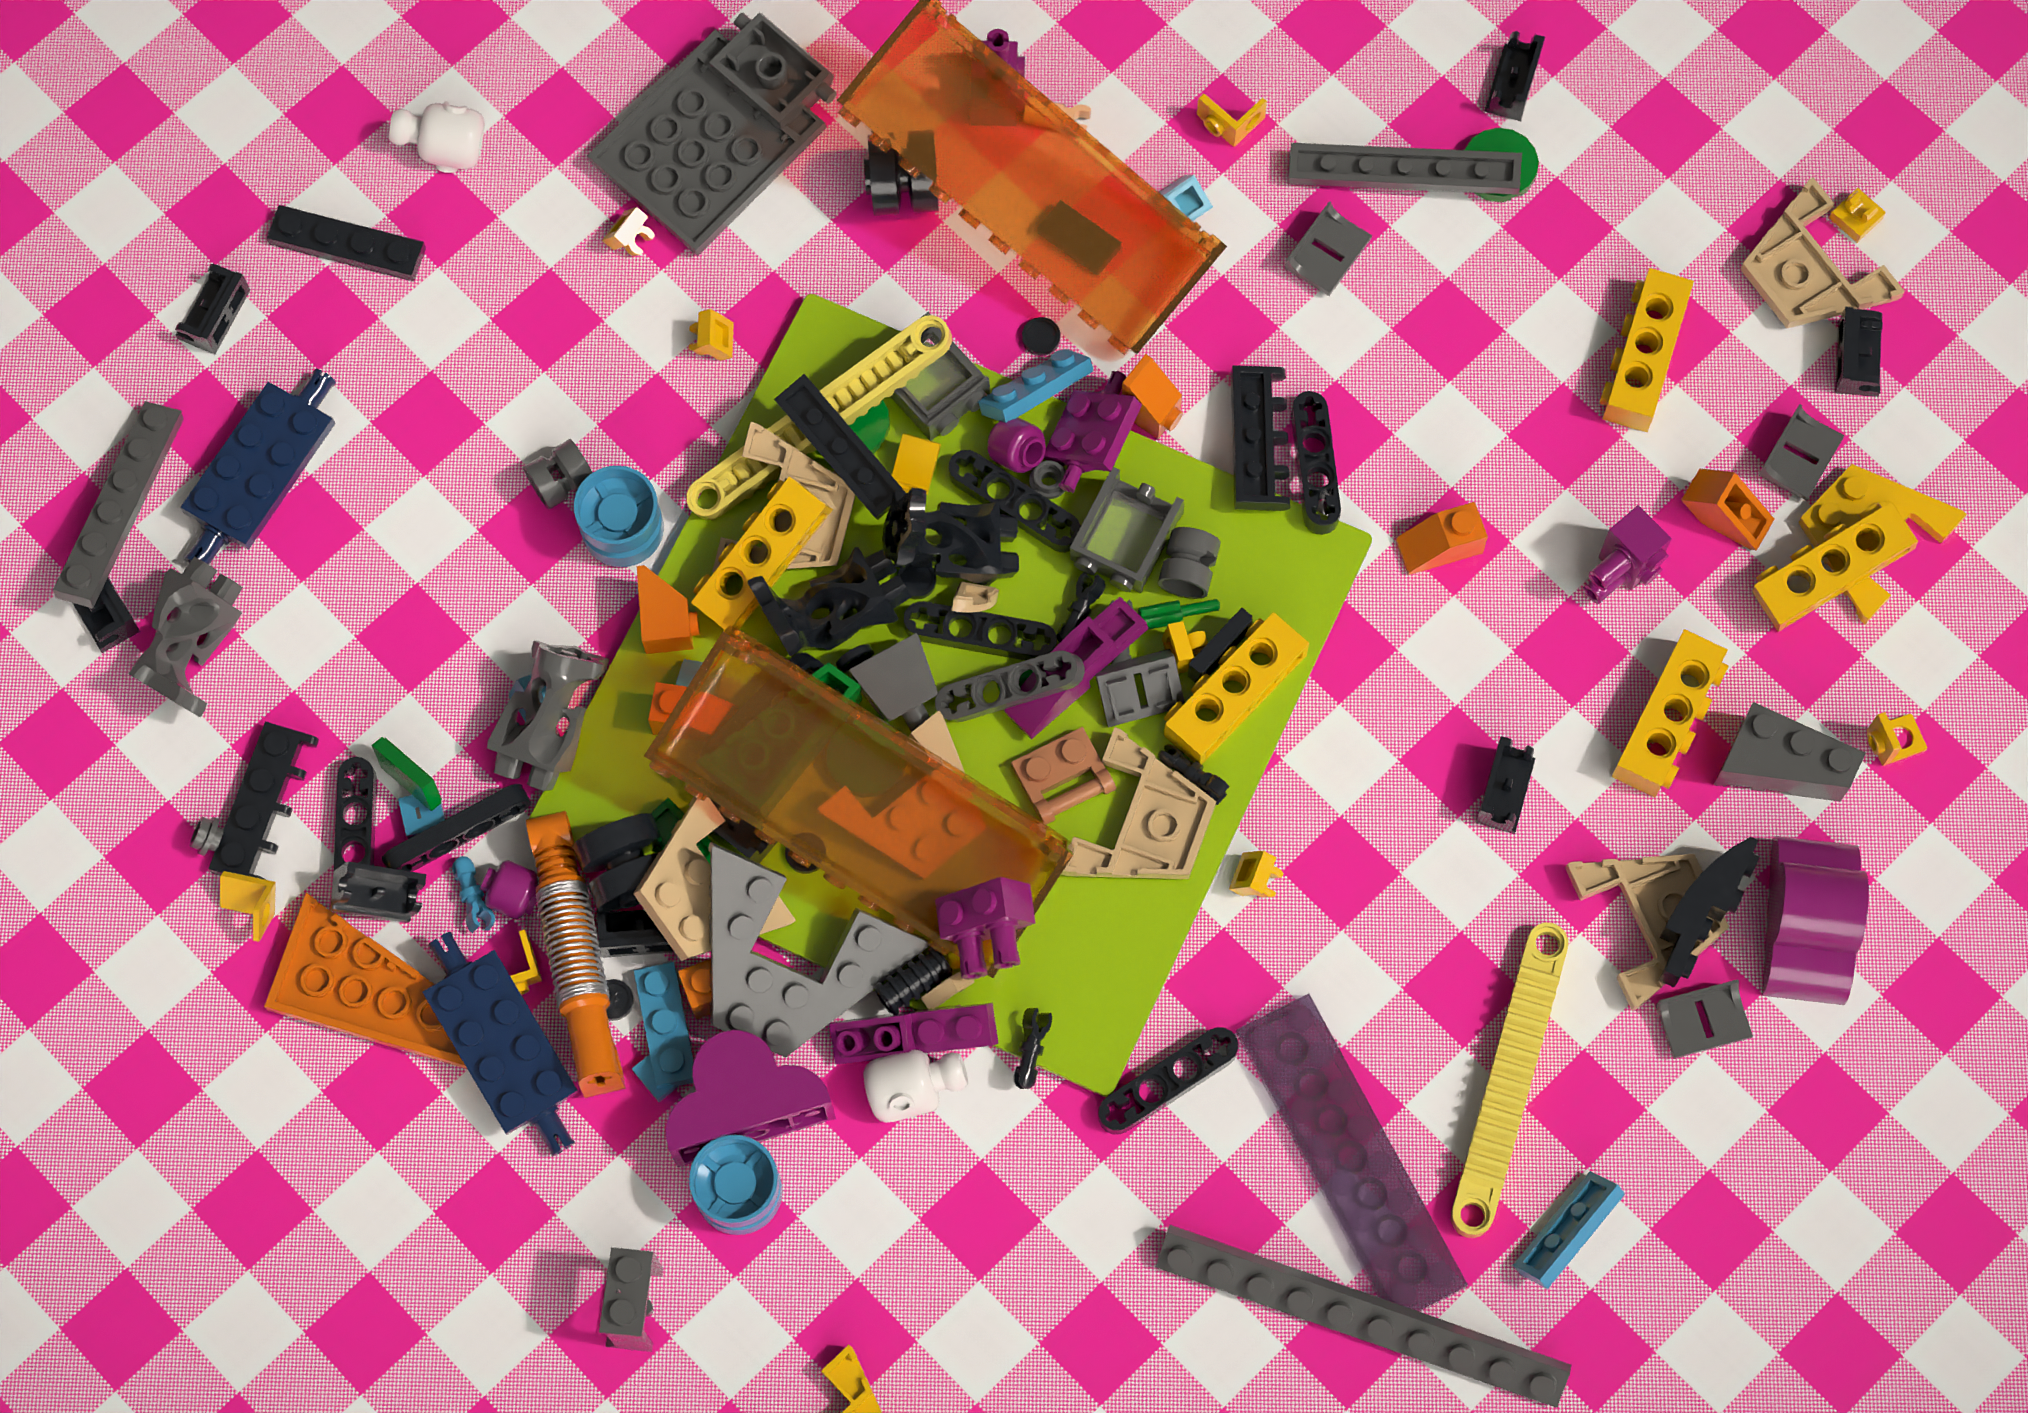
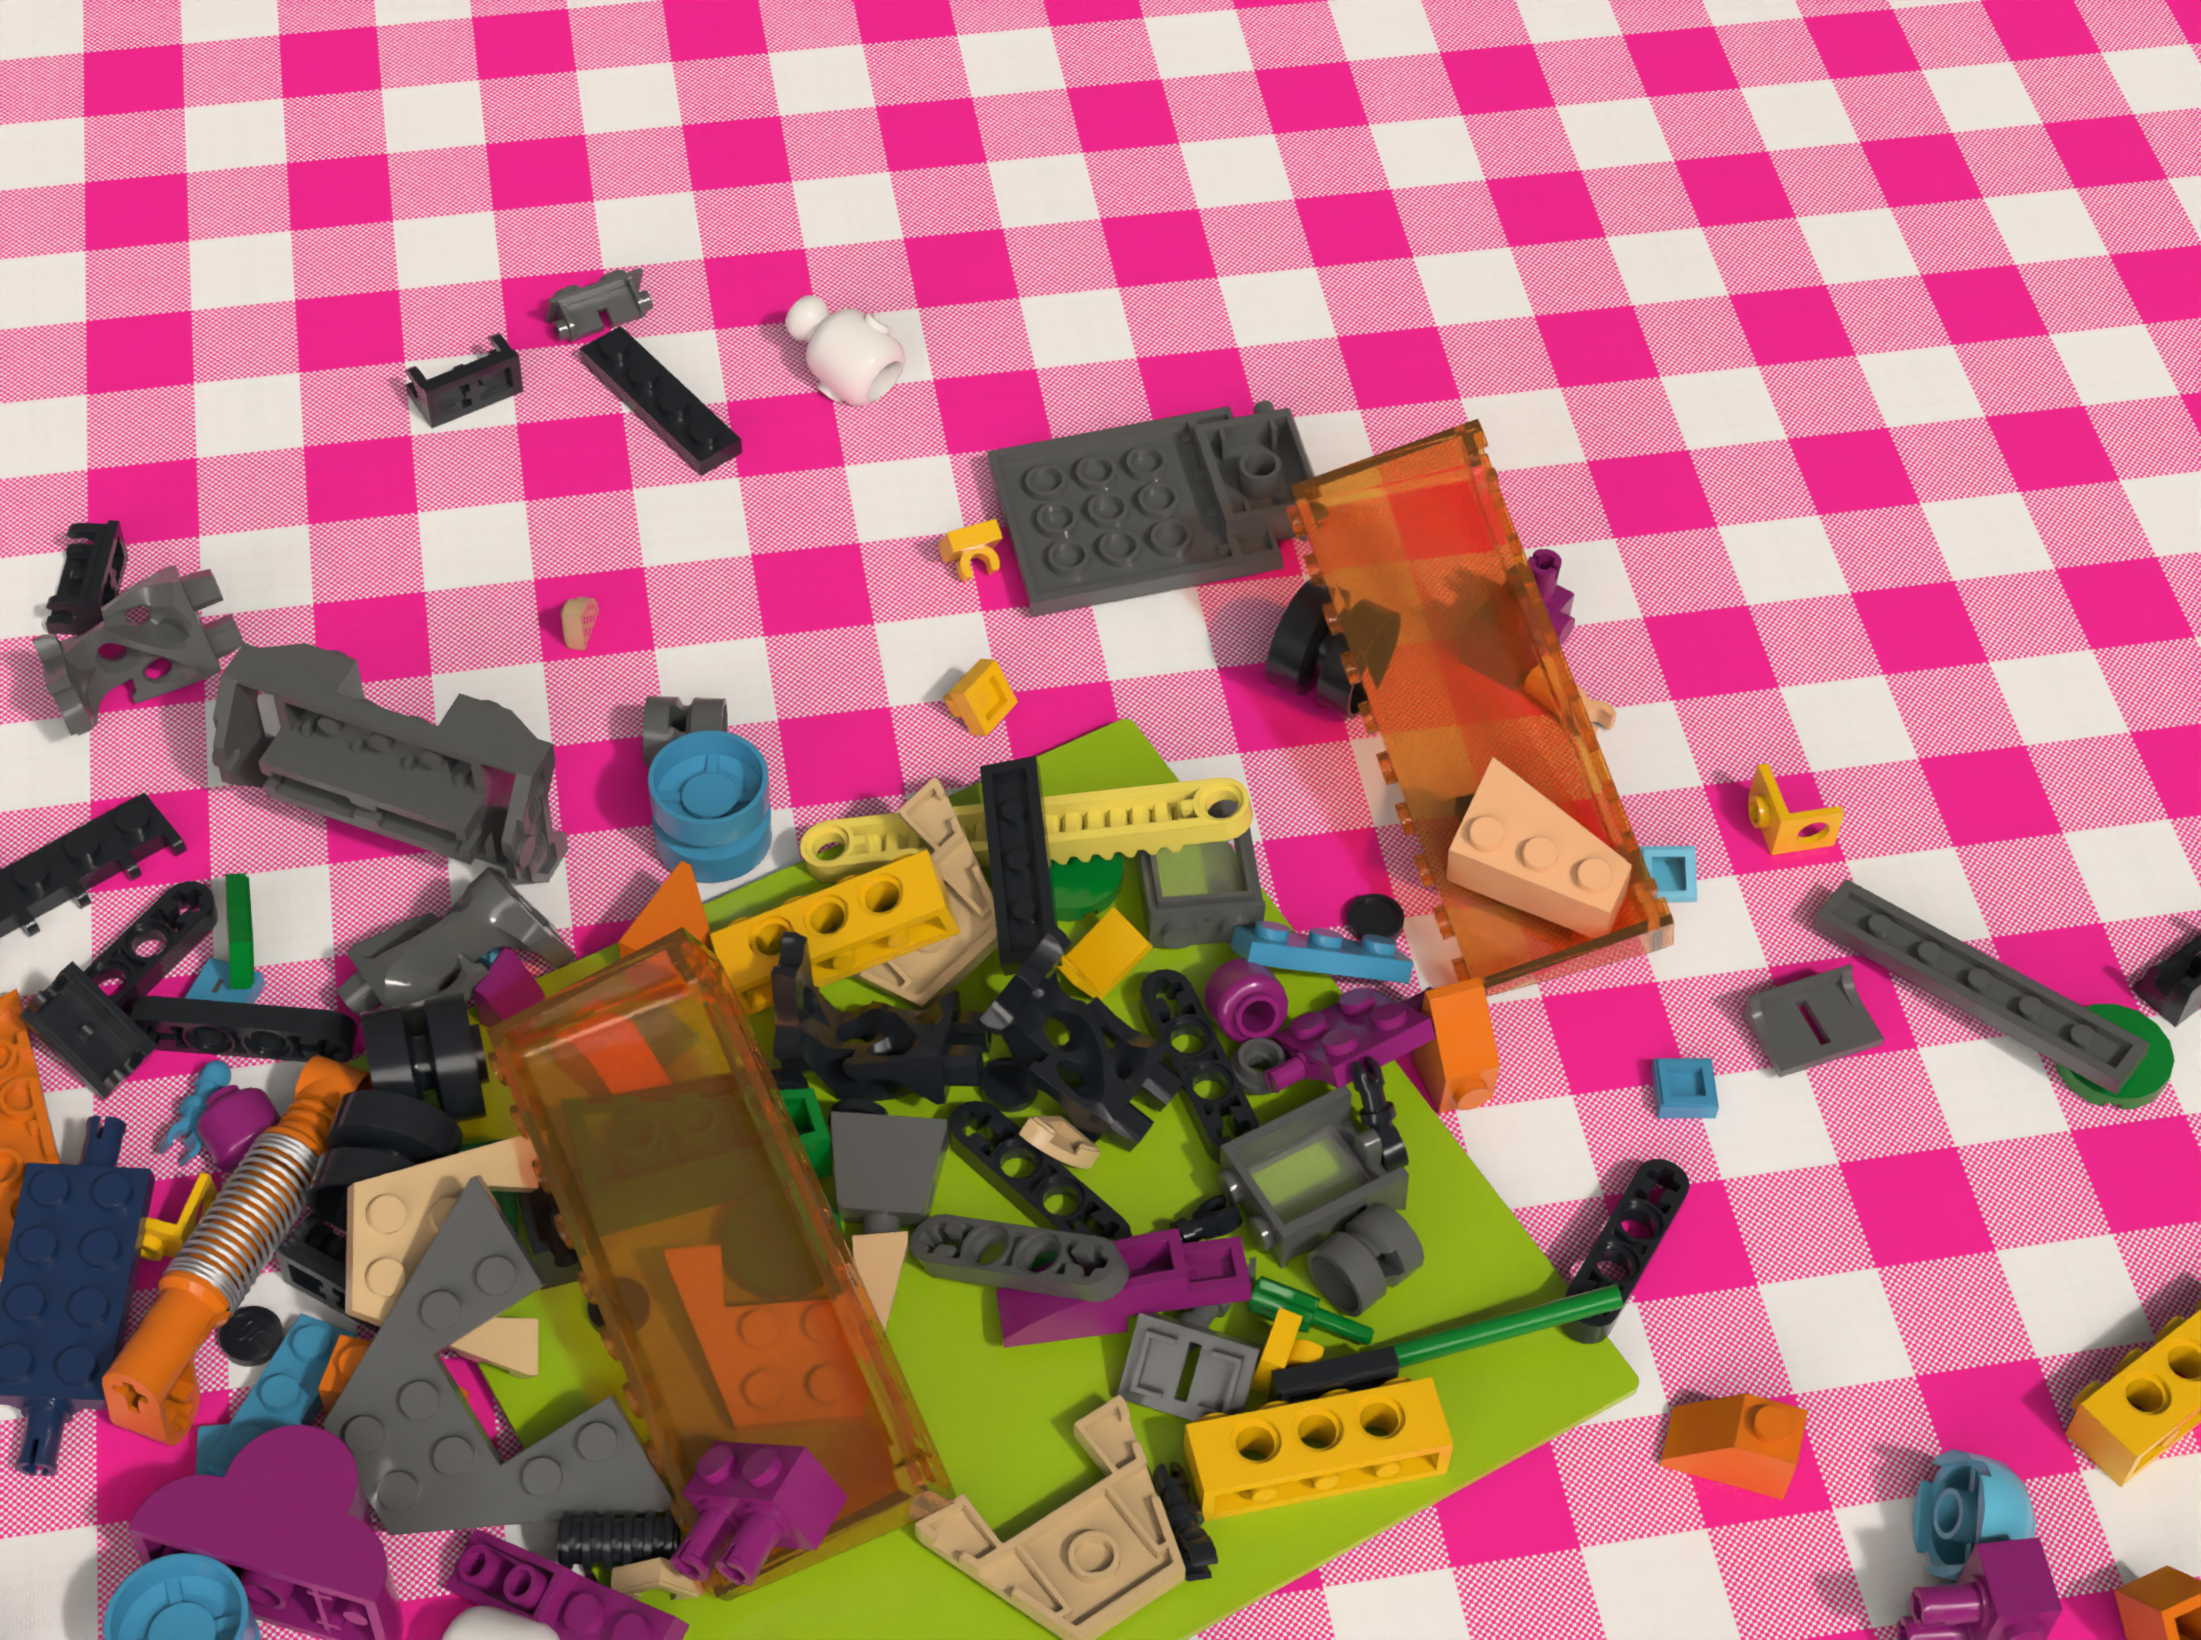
camera: 30 degrees right, 20 degrees down
(118, 505) = (188, 492): dark grey plate -> none
(258, 466) = (370, 544): dark blue plate -> none
(259, 184) = (577, 309): none -> dark grey hinge
(417, 625) = (449, 788): none -> dark grey piece
(428, 437) = (578, 621): none -> tan tile
(599, 713) = (505, 990): none -> magenta slope
(604, 779) = (440, 1062): none -> black wheel
(1057, 765) = (1013, 1401): nougat plate -> none
(1120, 248) = (1536, 857): none -> light nougat wedge
(1139, 470) = (1378, 1112): none -> black piece
(1255, 438) = (1563, 1172): black hinge -> none
(1282, 336) = (1684, 1088): none -> dark azure tile
(1286, 554) = (1508, 1325): none -> green bar
(1587, 505) = (1968, 1505): none -> medium azure cylinder

